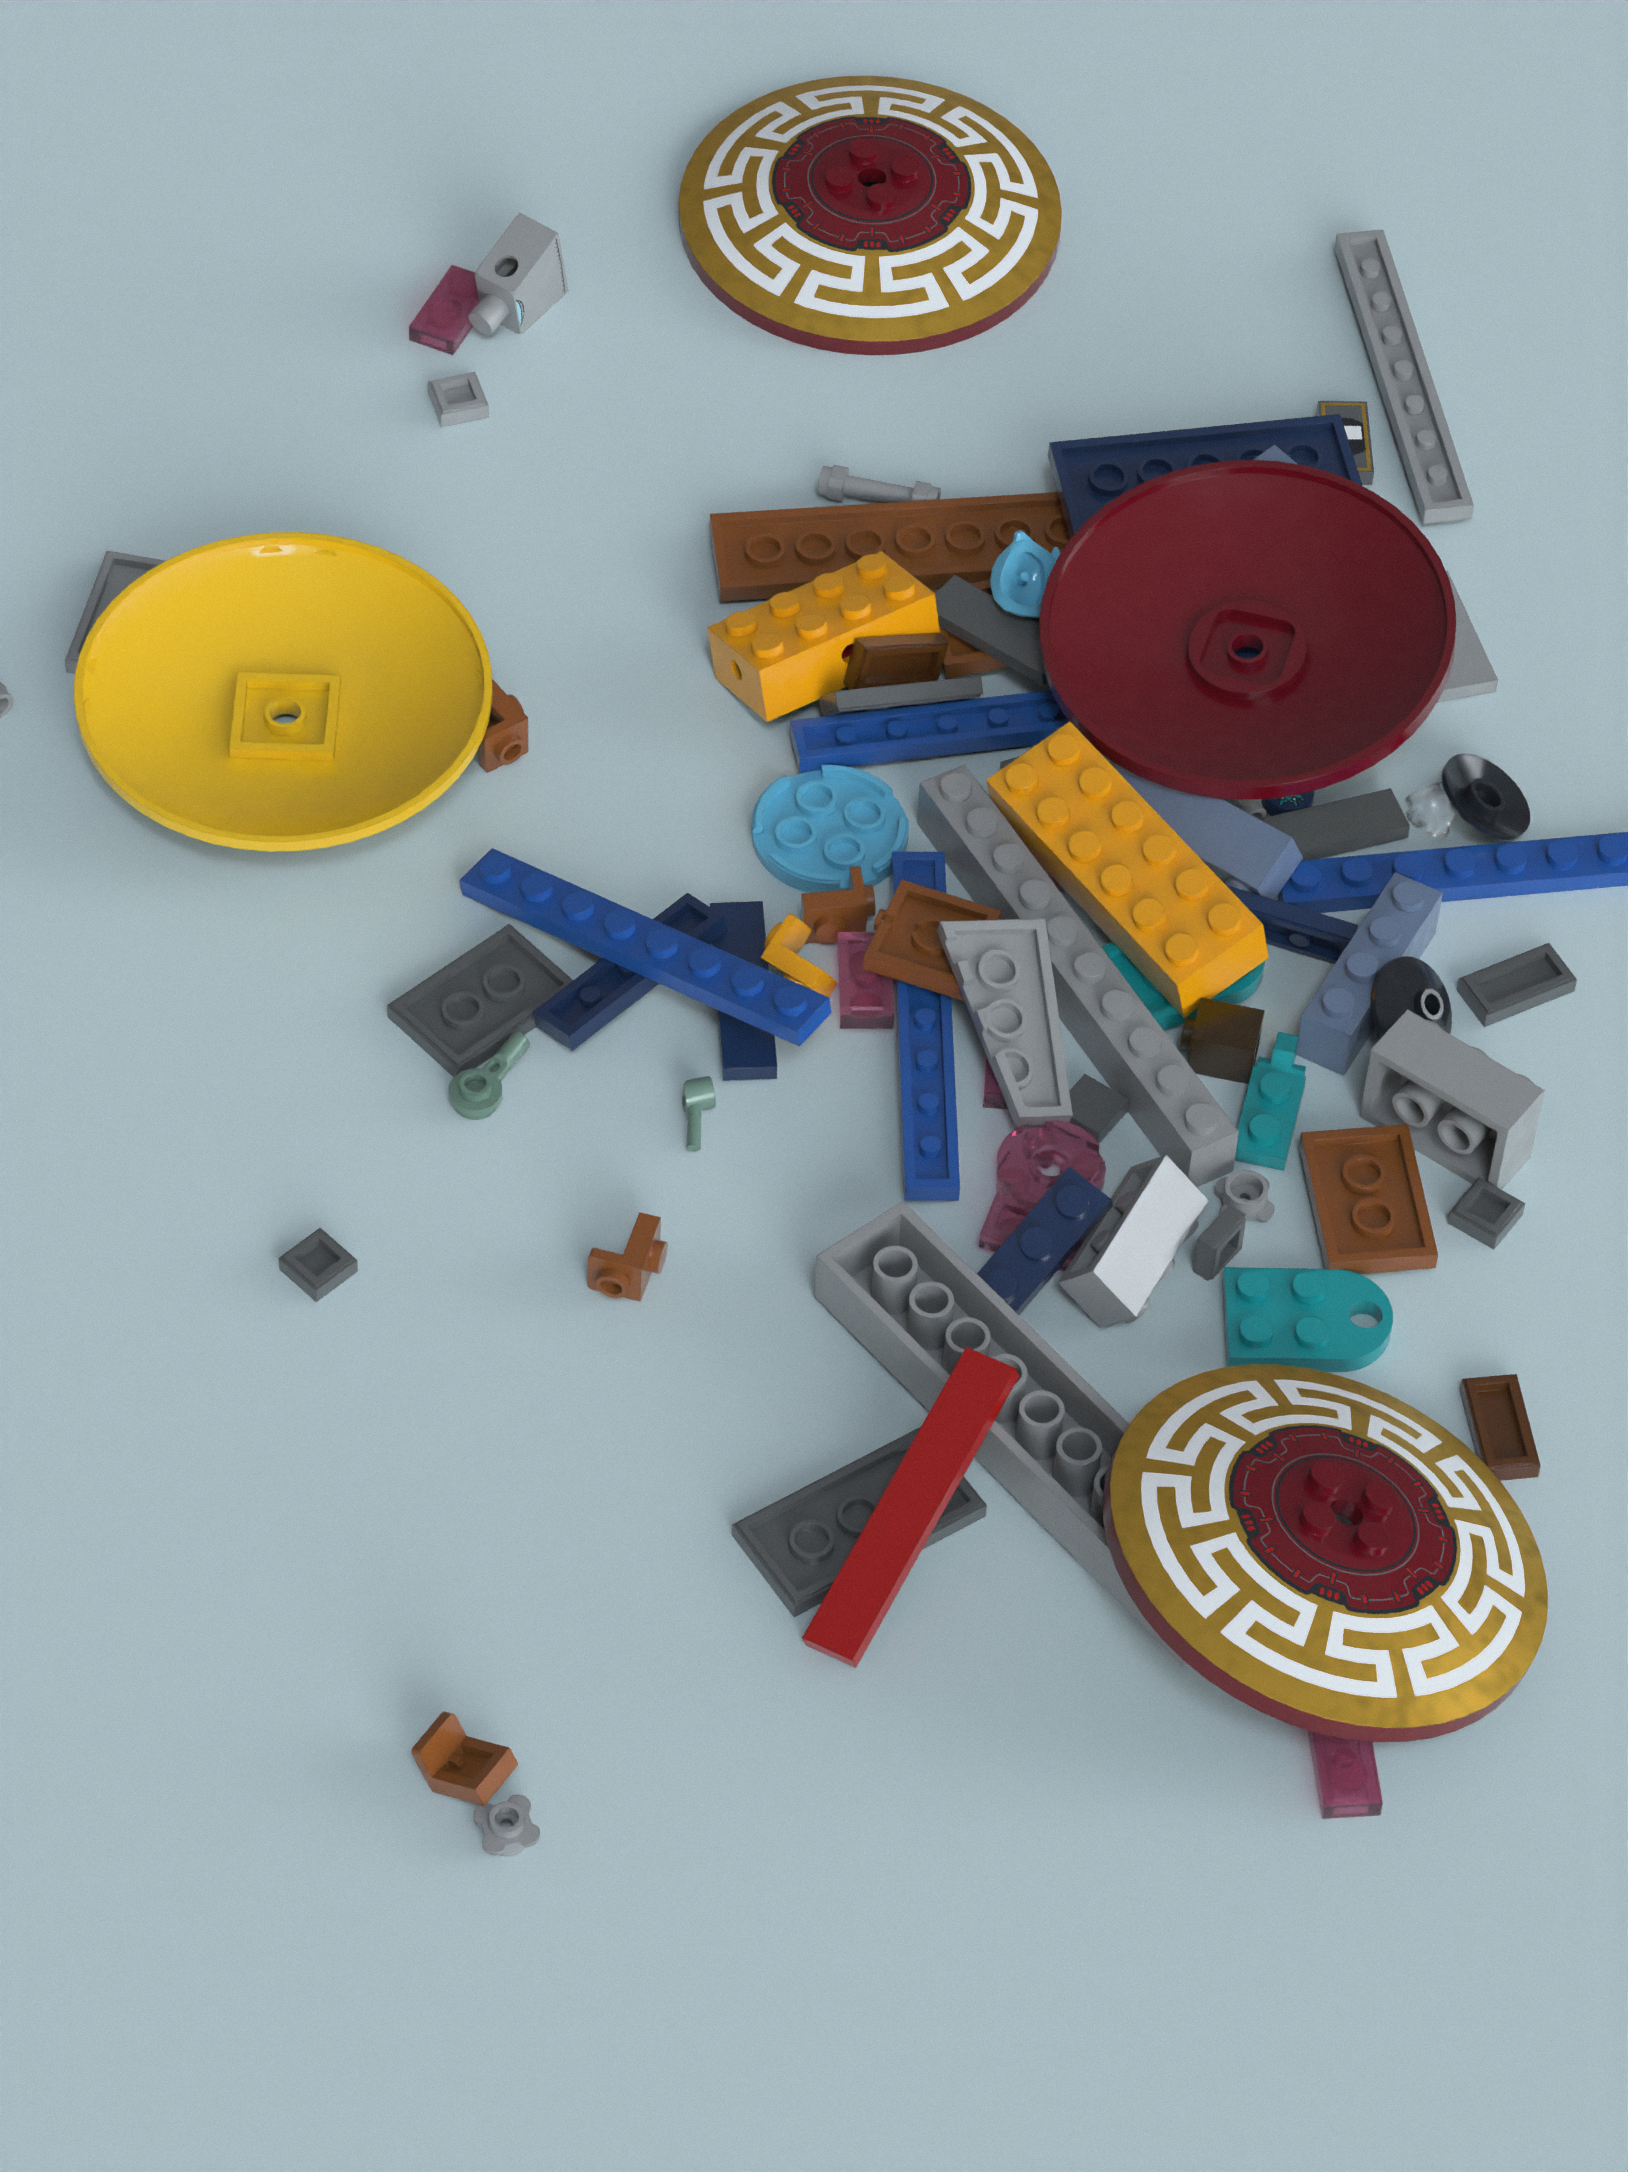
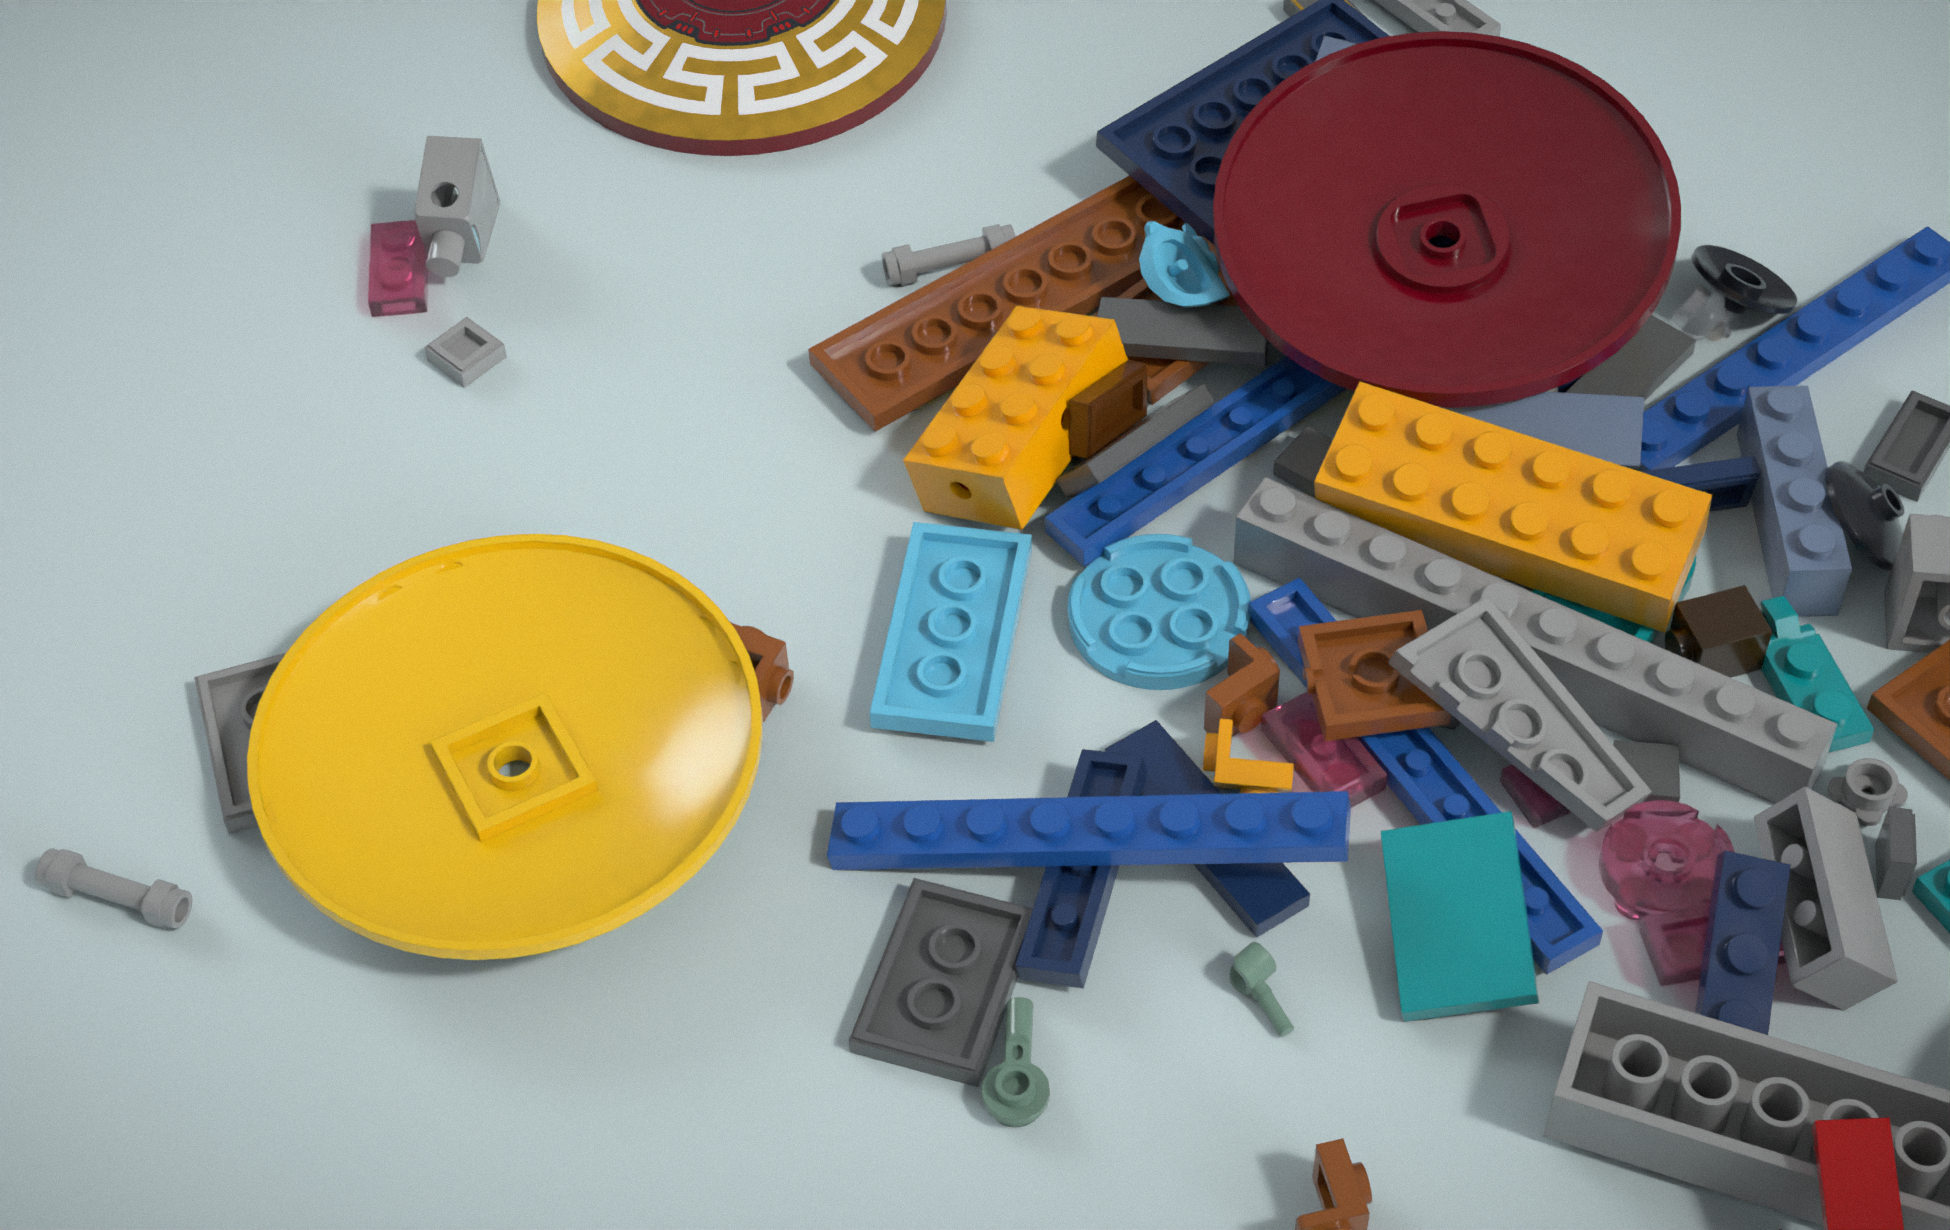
camera: 25 degrees left, 0 degrees up
(664, 770) = (952, 632): none -> medium azure plate
(864, 1128) = (1458, 917): none -> teal tile

